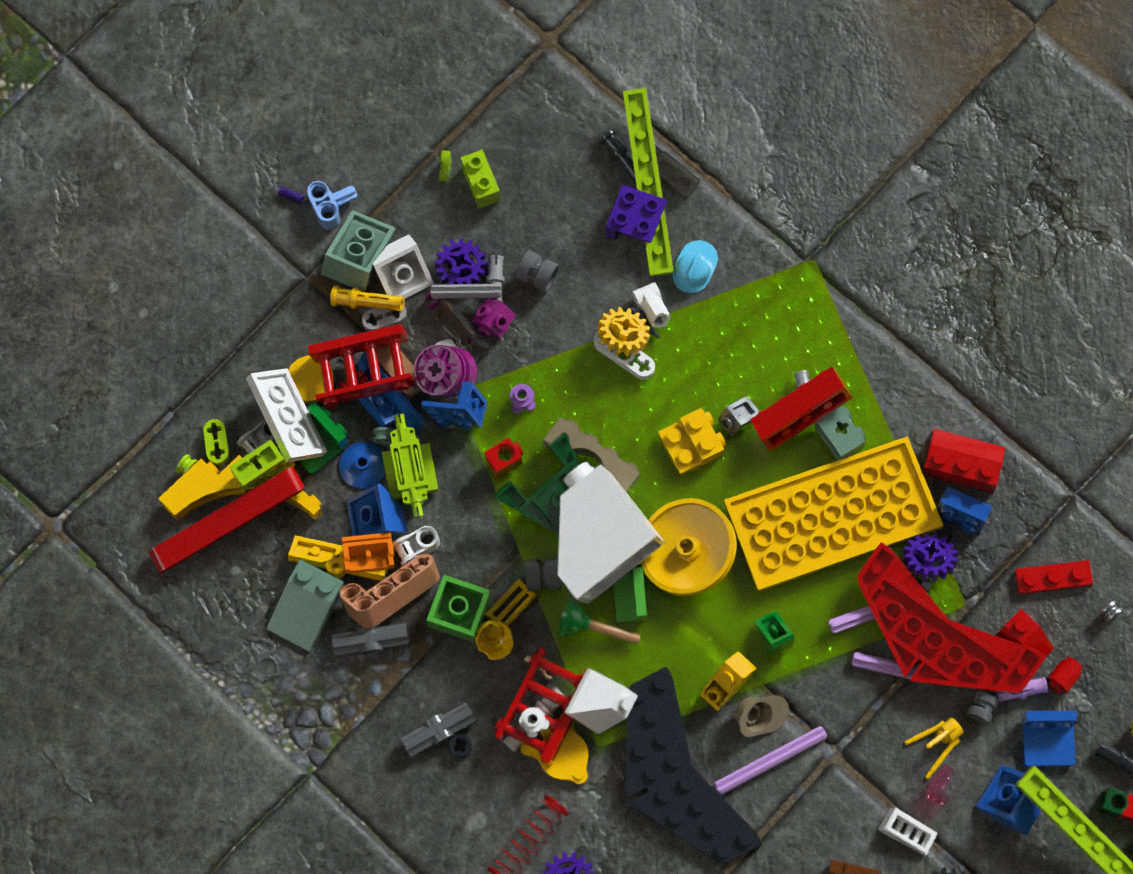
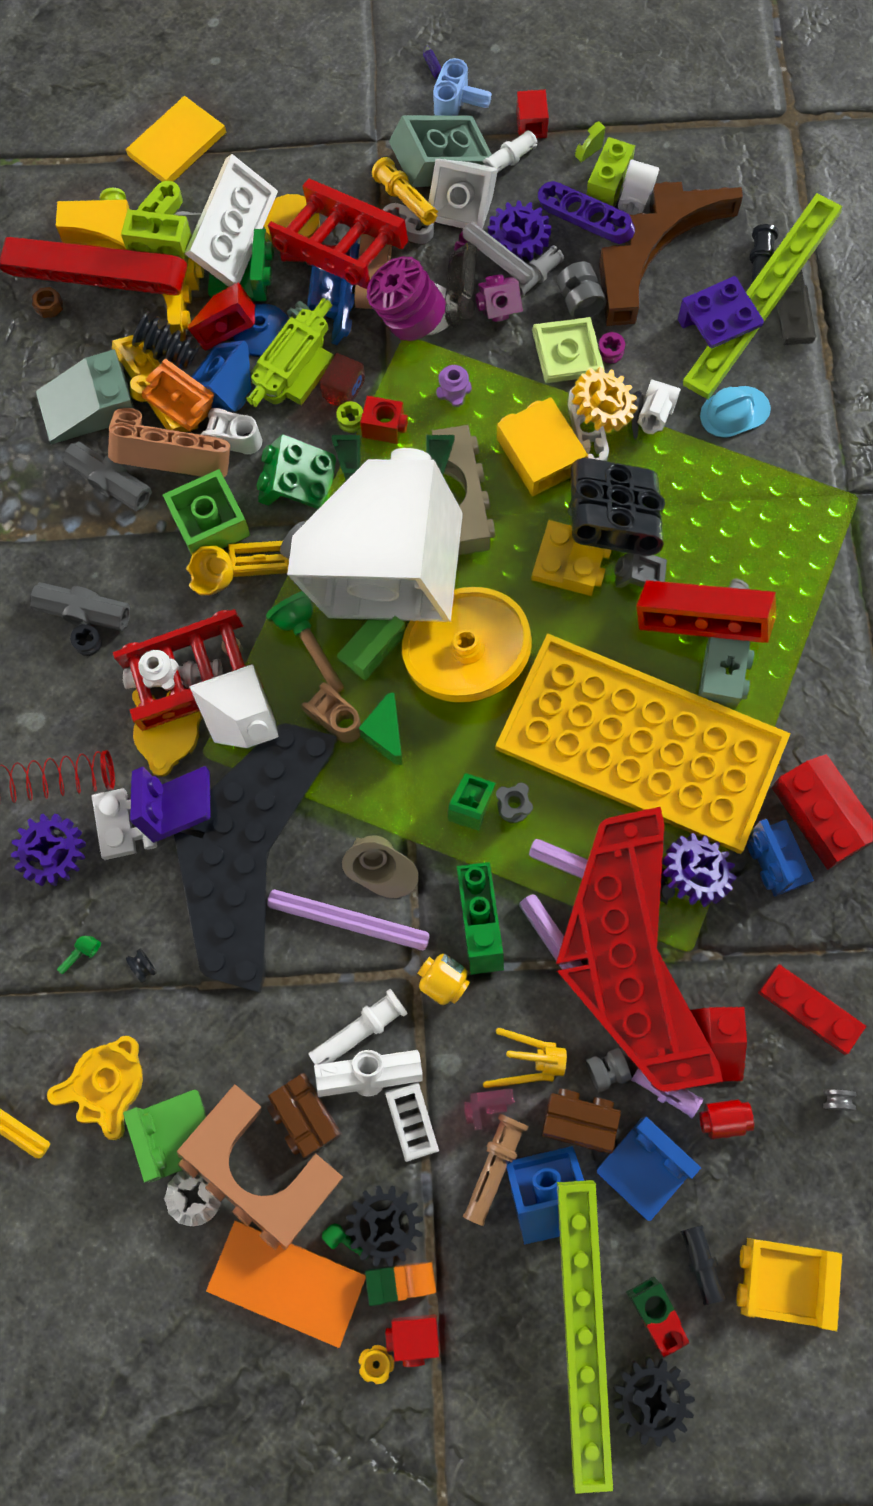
camera: 45 degrees right, 0 degrees up
(179, 390) = (176, 140): none -> yellow tile
(214, 567) = (47, 302): none -> reddish brown tile
(324, 526) = (164, 343): none -> black piece
(339, 478) = (223, 317): none -> red slope
(391, 177) = (532, 112): none -> red brick
(402, 215) = (512, 151): none -> white pin
(451, 455) = (342, 380): none -> clear red brick
(465, 414) = (390, 345): blue bracket -> none
(474, 465) = (343, 421): none -> lime bush
(480, 536) = (295, 472): none -> green bracket
(491, 217) = (588, 208): none -> dark purple beam
(509, 174) = (637, 187): none -> white piece
(539, 171) = (671, 215): none -> reddish brown arch
(564, 315) = (566, 349): none -> yellowish green plate
(589, 296) = (614, 340): none -> magenta bush
(589, 832) = (114, 826): none -> white plate
(610, 390) = (540, 445): none -> yellow brick
(614, 786) = (169, 807): none -> dark purple bracket
(649, 653) = (329, 709): none -> medium nougat piece
(689, 638) = (382, 729): none -> green slope
(693, 391) = (616, 507): none -> black connector
(727, 680) = (380, 803): yellow slope -> none
(804, 607) = (514, 794): none -> dark grey brick
(837, 800) = (371, 1021): none -> white pin
(841, 692) = (480, 918): none -> green slope
(853, 742) = (443, 979): none -> yellow head
(870, 818) = (384, 1069): none -> white piece
(969, 802) = (500, 1151): none -> medium nougat pin
(995, 747) = (581, 1122): none -> reddish brown brick

